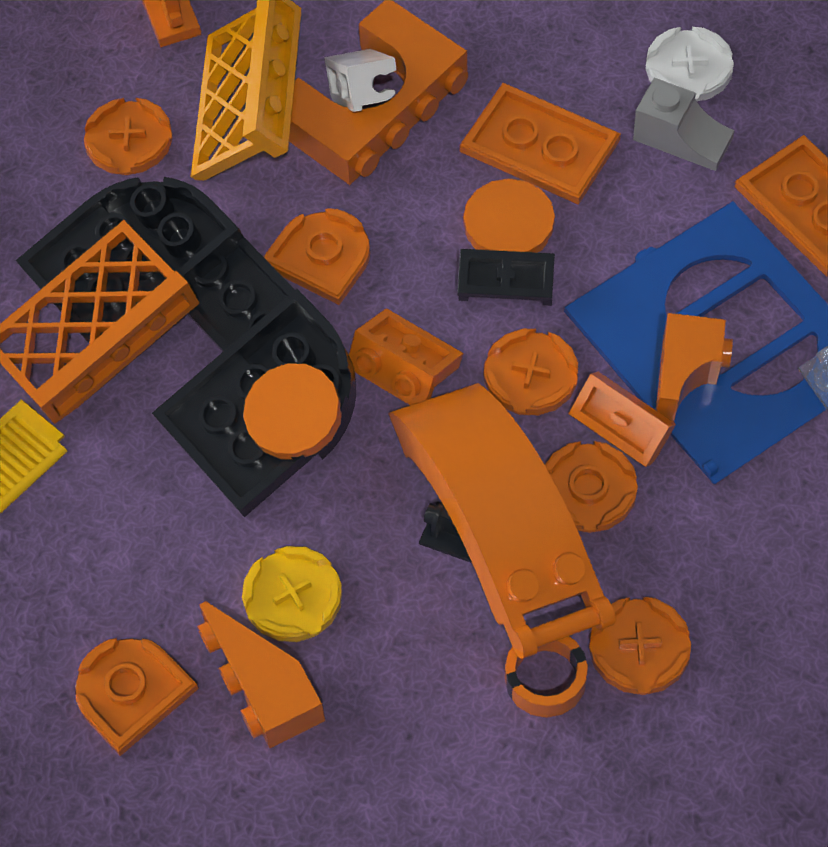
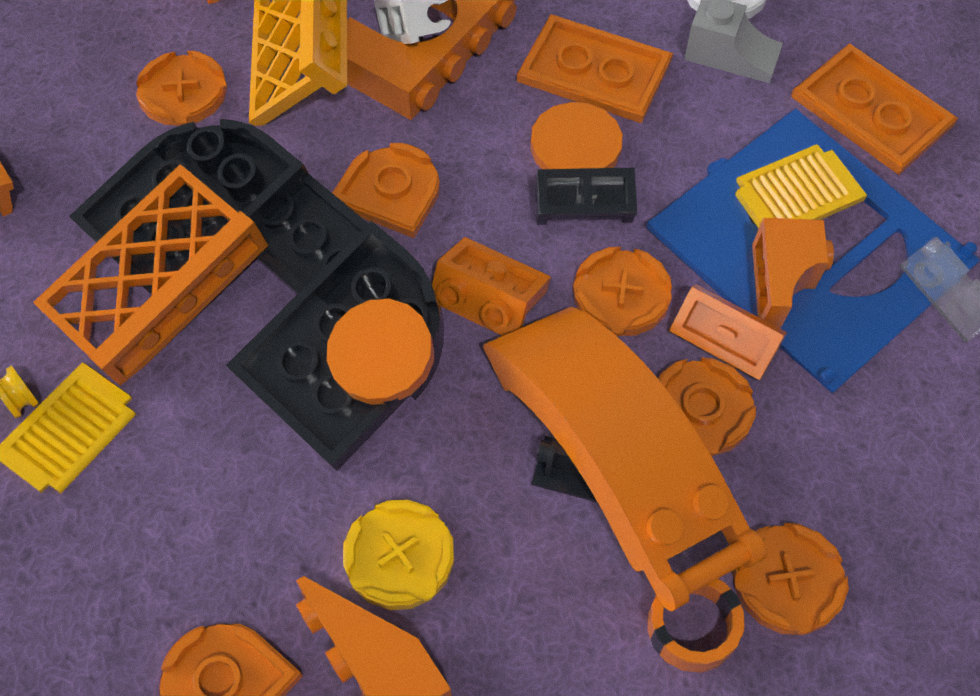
camera: 10 degrees left, 0 degrees up
(719, 283) = (799, 187): none -> yellow window

